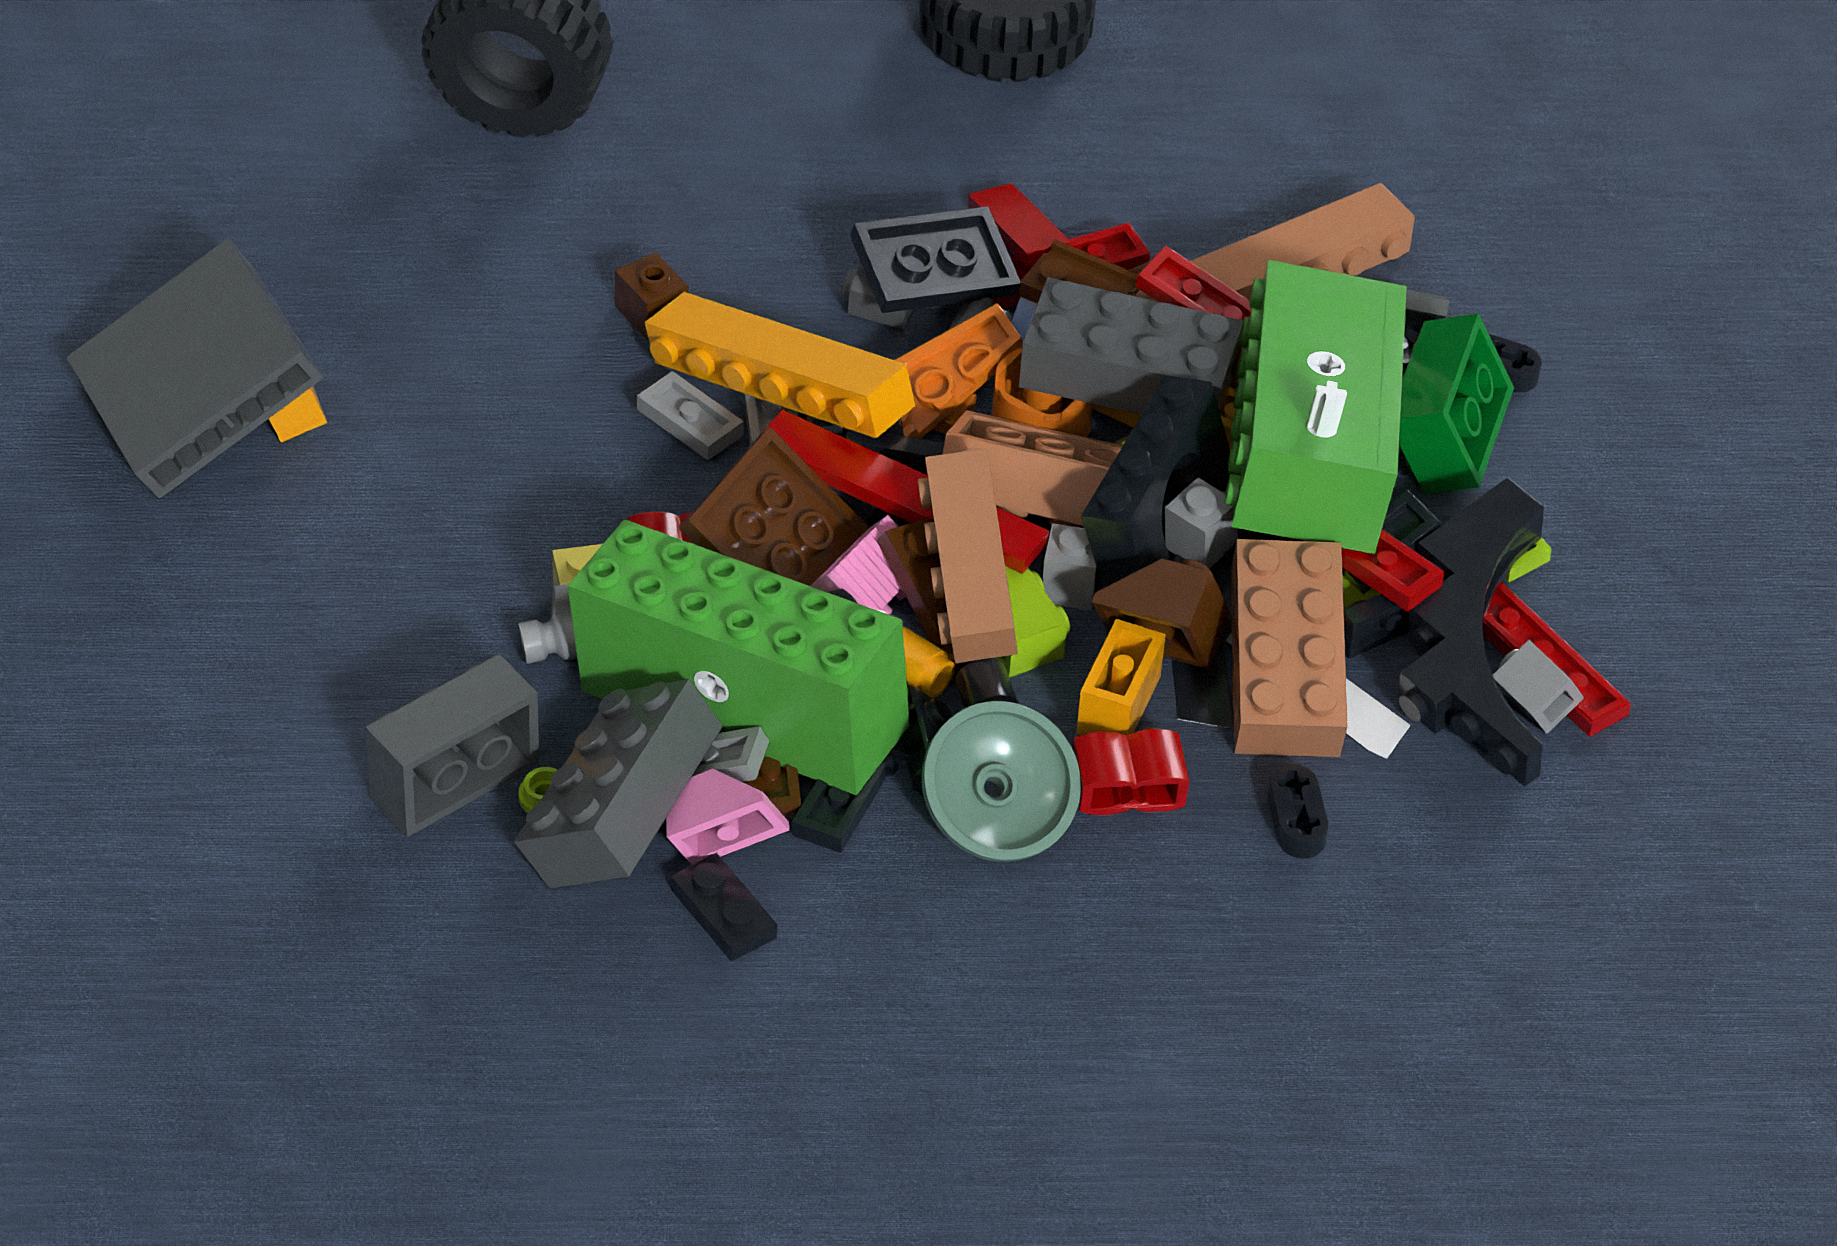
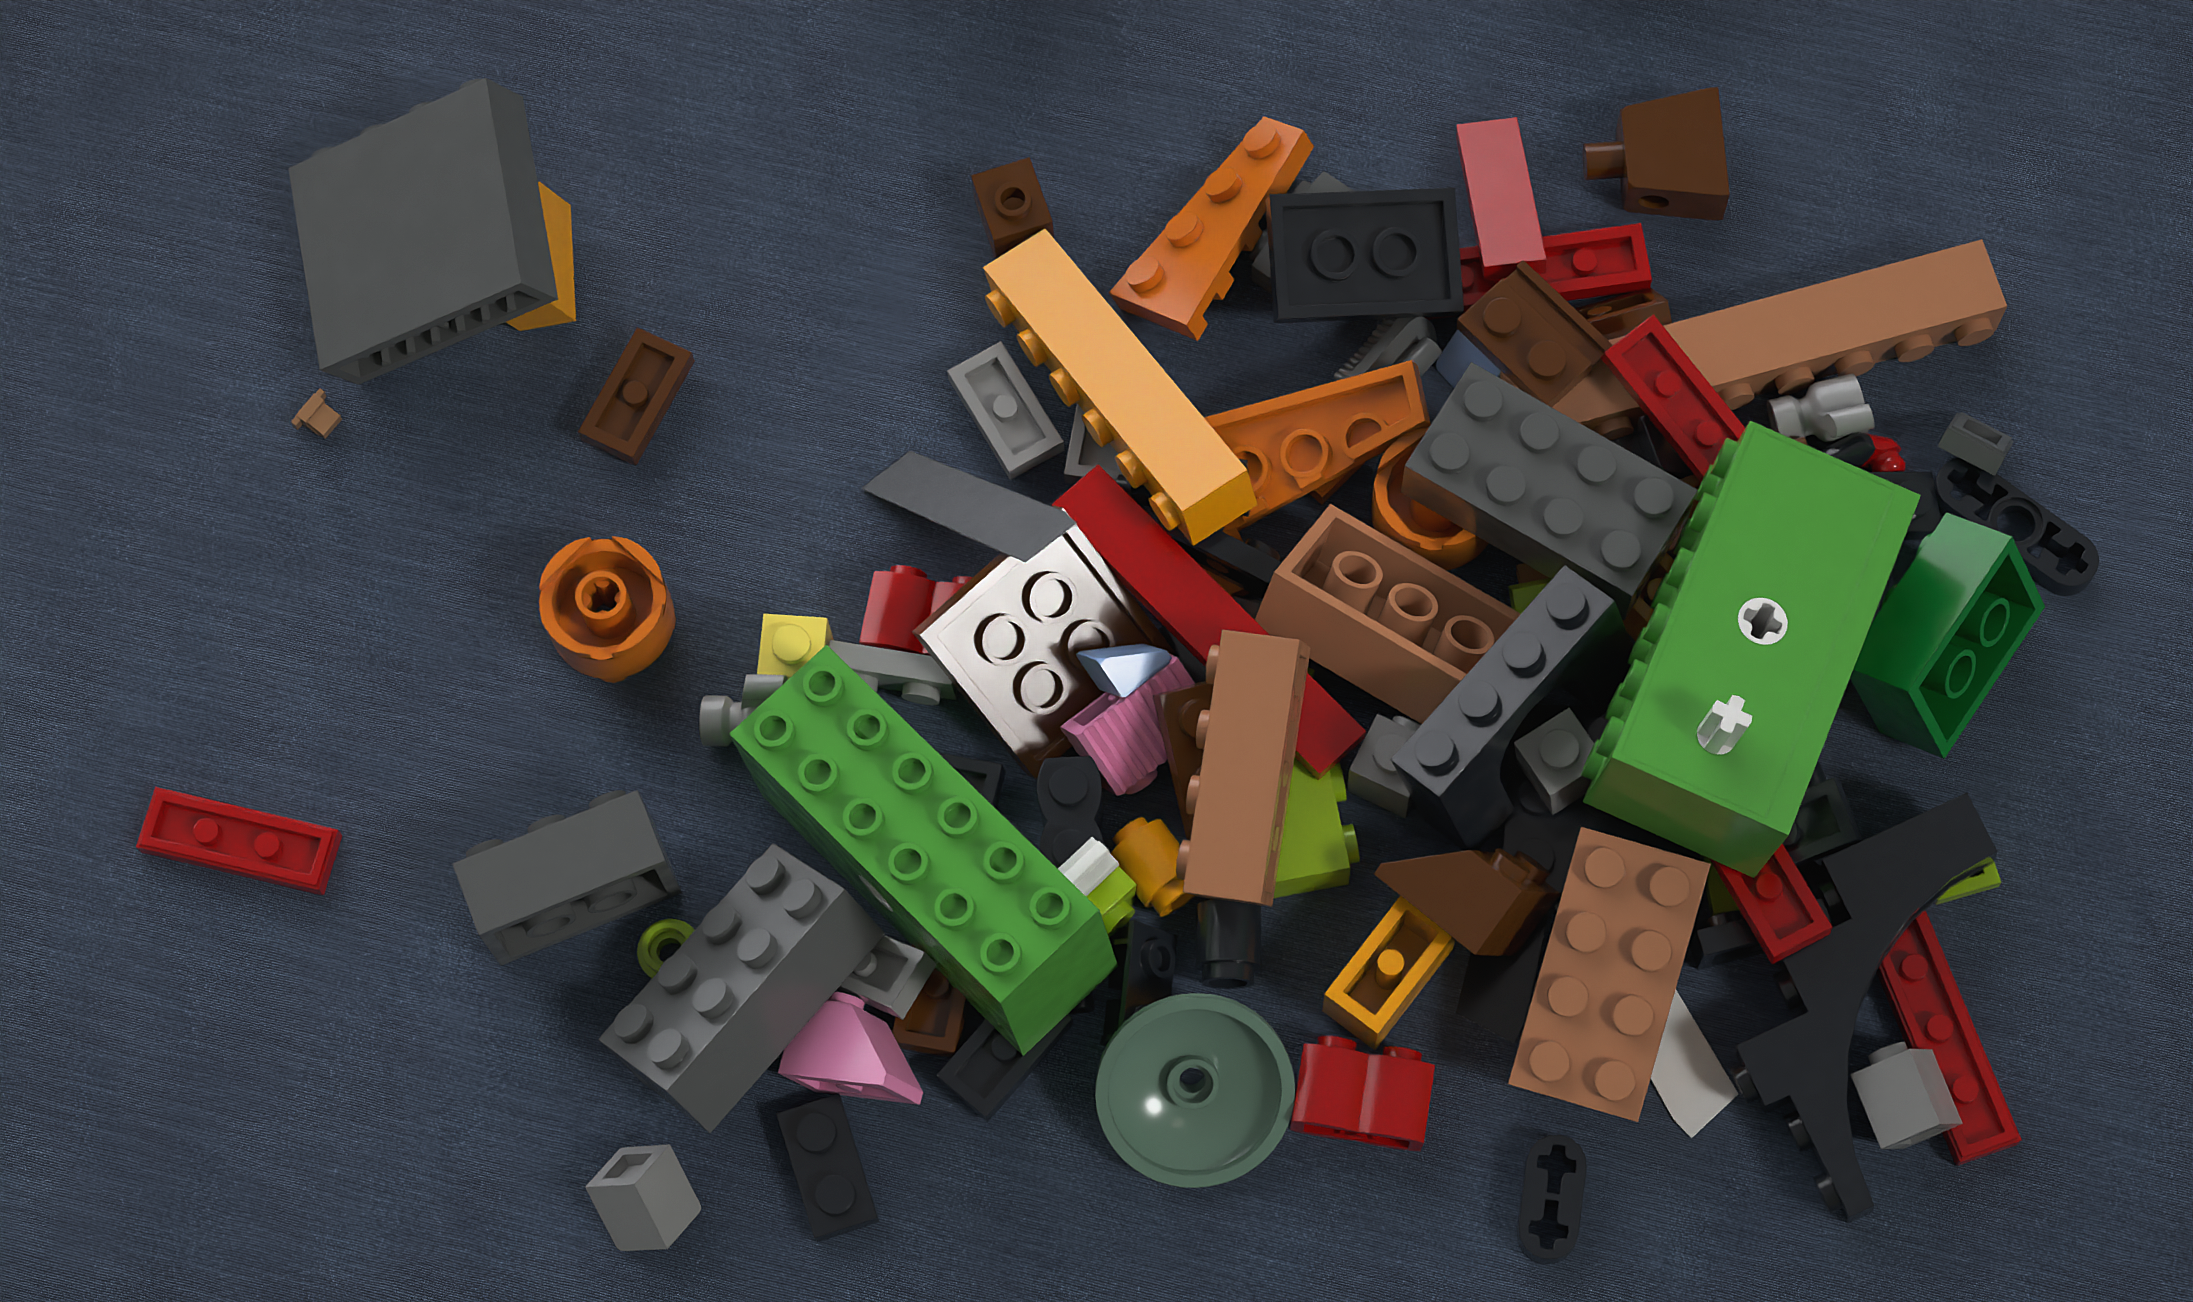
camera: 25 degrees right, 25 degrees up
(134, 520) = (317, 415): none -> medium nougat piece
(161, 796) = (239, 841): none -> red tile
(393, 457) = (636, 396): none -> reddish brown plate
(420, 580) = (621, 577): none -> orange brick
(583, 949) = (644, 1198): none -> light grey panel
(690, 456) = (971, 506): none -> sticker
(809, 282) = (1201, 243): none -> orange wing
(842, 532) = (1123, 668): none -> light blue slope
(1133, 184) = (1667, 157): none -> reddish brown torso

